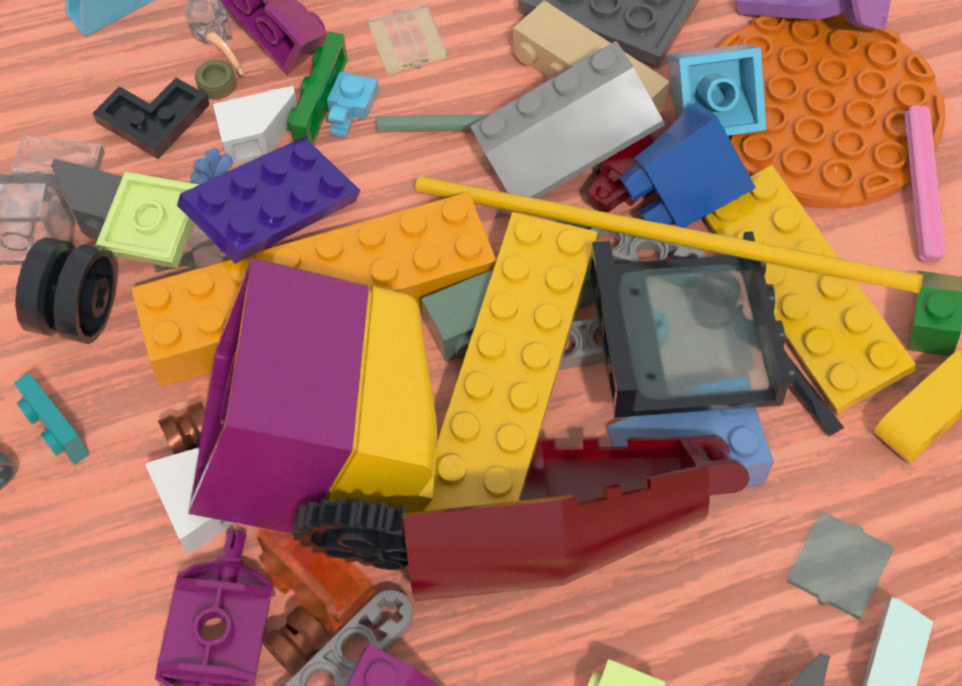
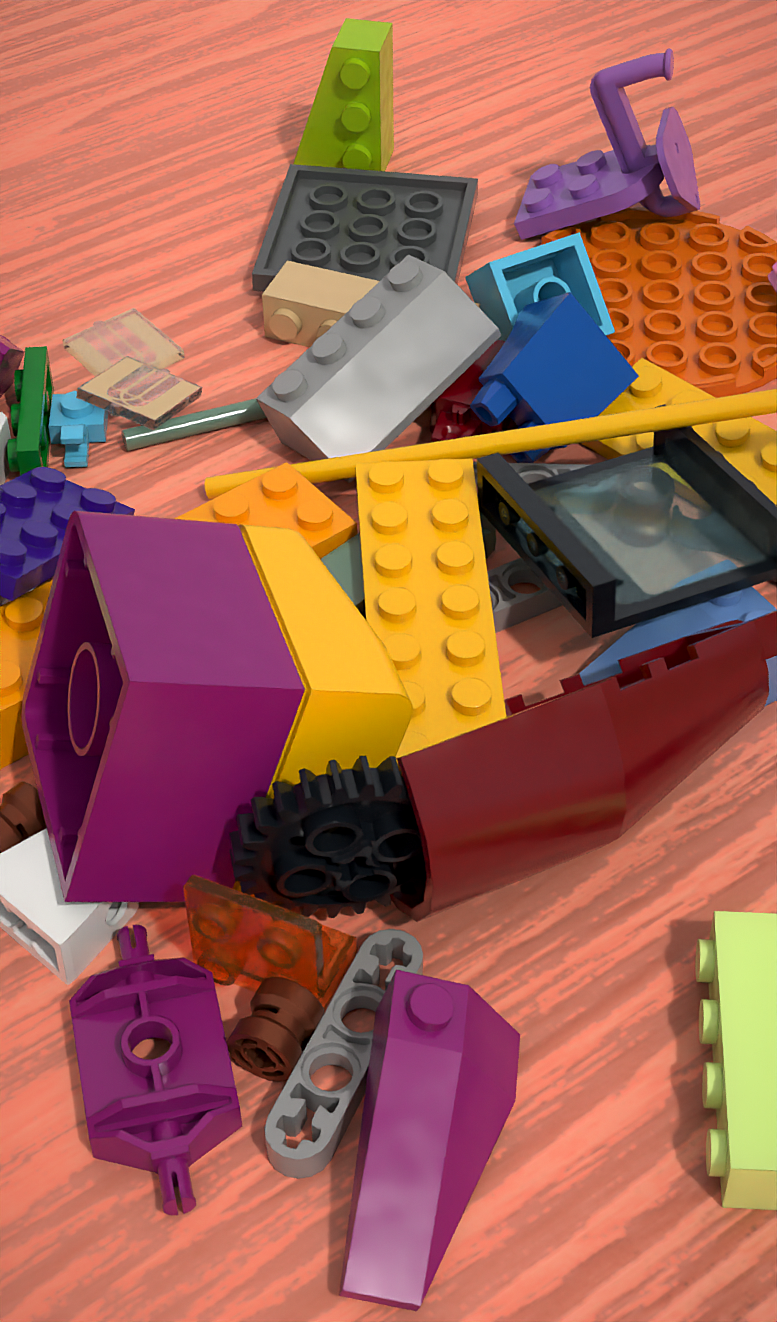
camera: 20 degrees left, 15 degrees down
(399, 88) = (139, 392): none -> piece

